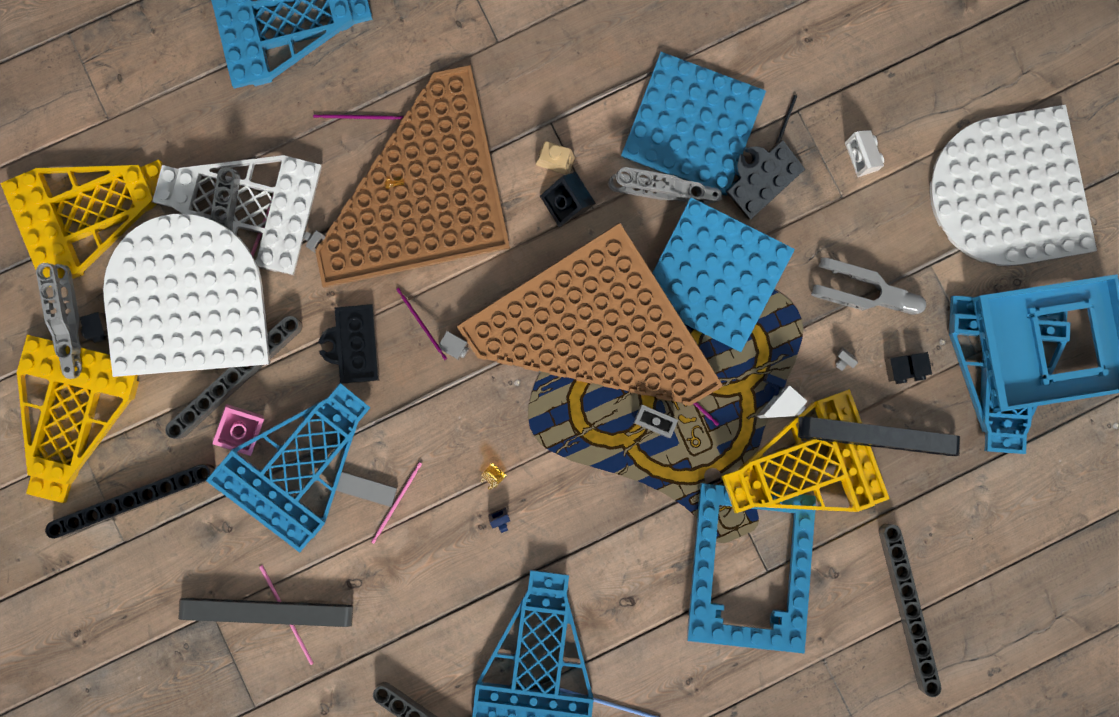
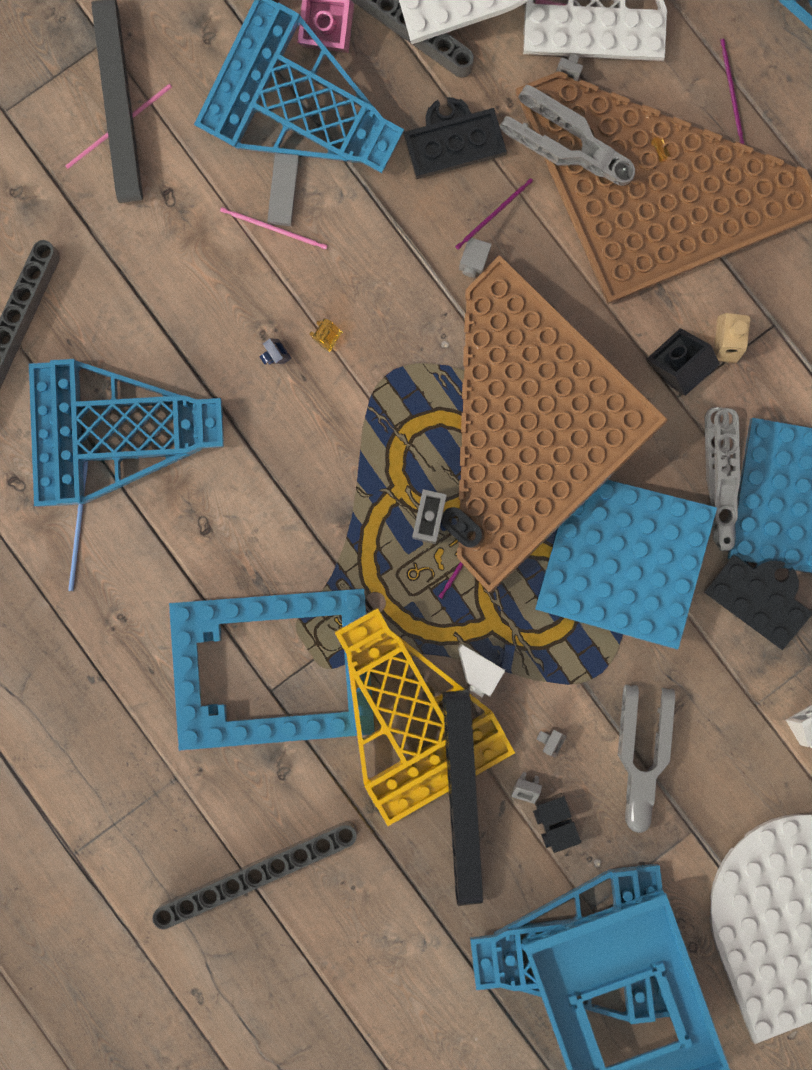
camera: 80 degrees right, 0 degrees up
(390, 237) = (594, 156): none -> light grey piece
(669, 397) = (463, 528): none -> black plate
(879, 386) = (527, 790): none -> light grey tile

